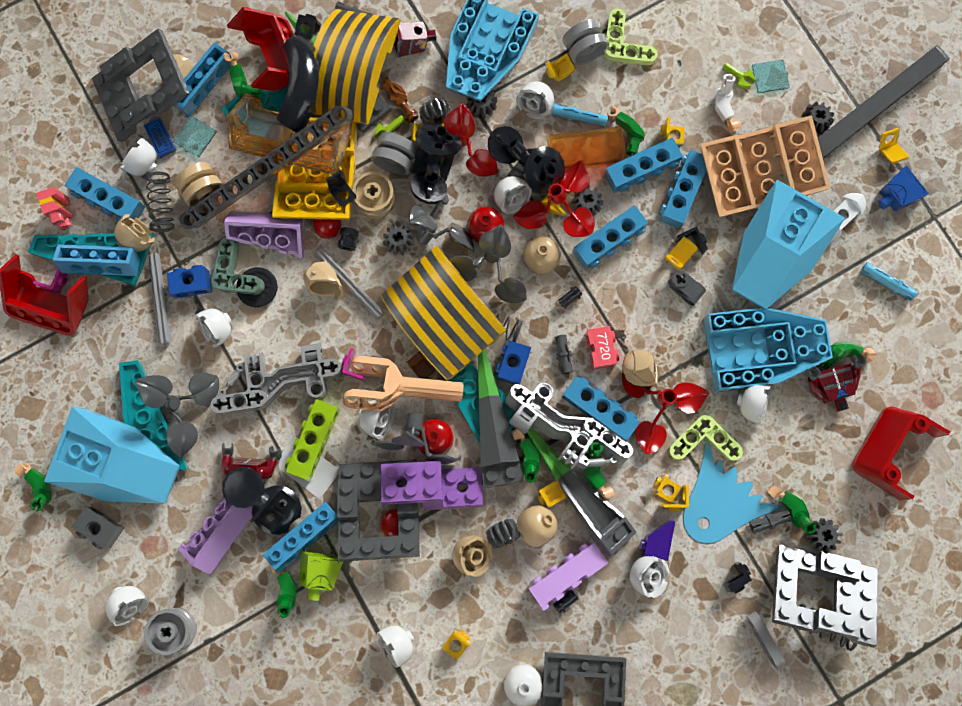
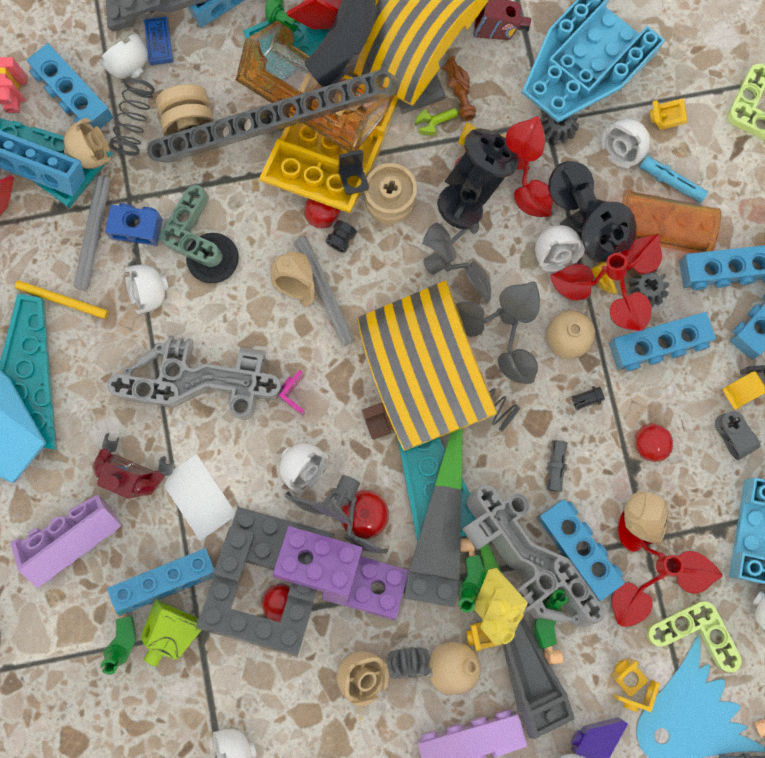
camera: 15 degrees right, 0 degrees up
(154, 356) = (61, 299): none -> yellow bar
(156, 392) = (46, 346): dark grey plant -> none
(195, 136) = (200, 53): clear light blue piece -> none
(245, 488) = (114, 501): black piece -> none
(268, 232) = (246, 195): lavender wedge -> none
(315, 450) = (213, 481): lime brick -> none
(394, 153) = (432, 151): light grey wheel -> none
(395, 233) = (404, 265): dark grey gear -> none
(396, 386) = (340, 436): light nougat piece -> none
(434, 111) = (497, 116): dark grey gear -> none
(482, 221) = (512, 269): red cylinder -> none
(513, 374) = (504, 448): blue brick -> none
(554, 470) = (499, 607): none -> light yellow plate
(585, 42) = (711, 92): light grey wheel -> none
(603, 349) = (608, 474): coral brick -> none
(628, 313) = (654, 442): none -> red hair
(631, 127) = (732, 215): green arm -> none

